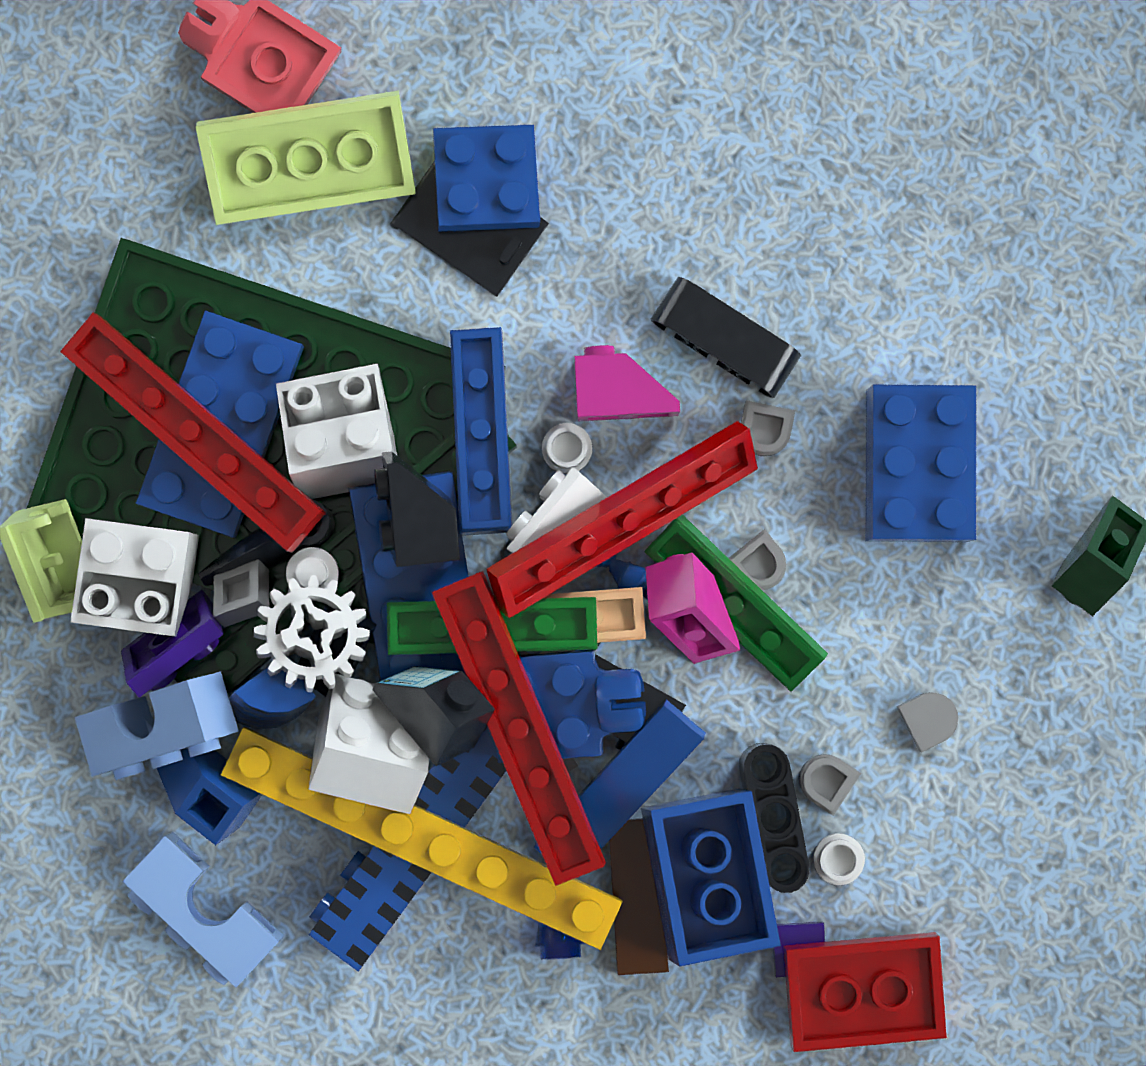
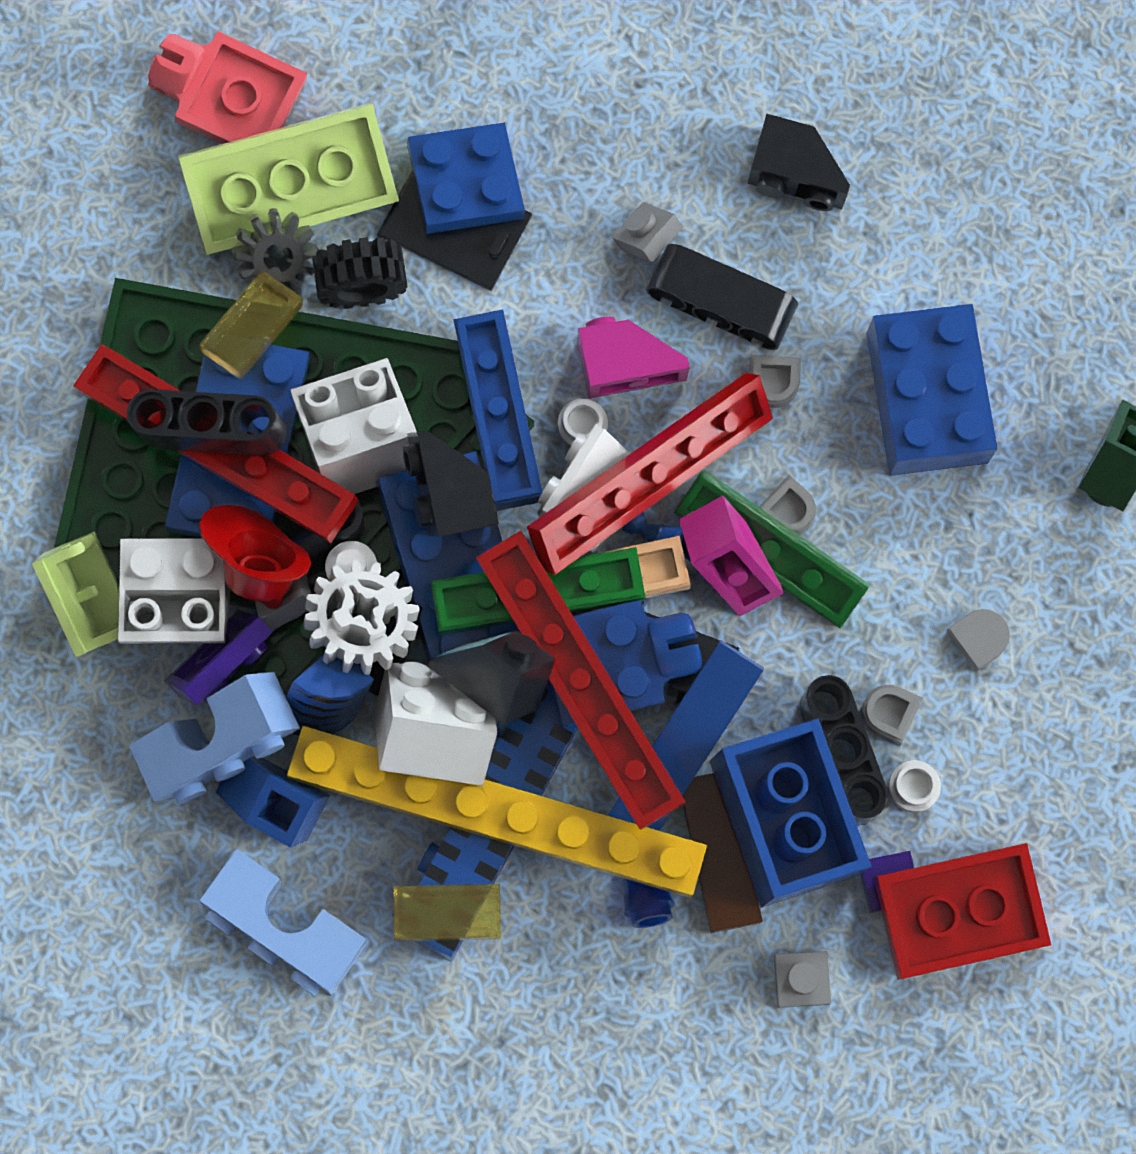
camera: 15 degrees left, 10 degrees down
(158, 411) = (187, 408): none -> black beam
(214, 550) = (254, 552): none -> red piece
(246, 311) = (251, 324): none -> clear yellow tile
(289, 218) = (286, 237): none -> dark grey gear
(359, 930) = (447, 912): none -> clear yellow tile
(364, 267) = (359, 273): none -> black tyre
(660, 260) = (647, 232): none -> light grey plate
(698, 1032) = (802, 979): none -> light grey plate
(822, 206) = (797, 163): none -> black slope

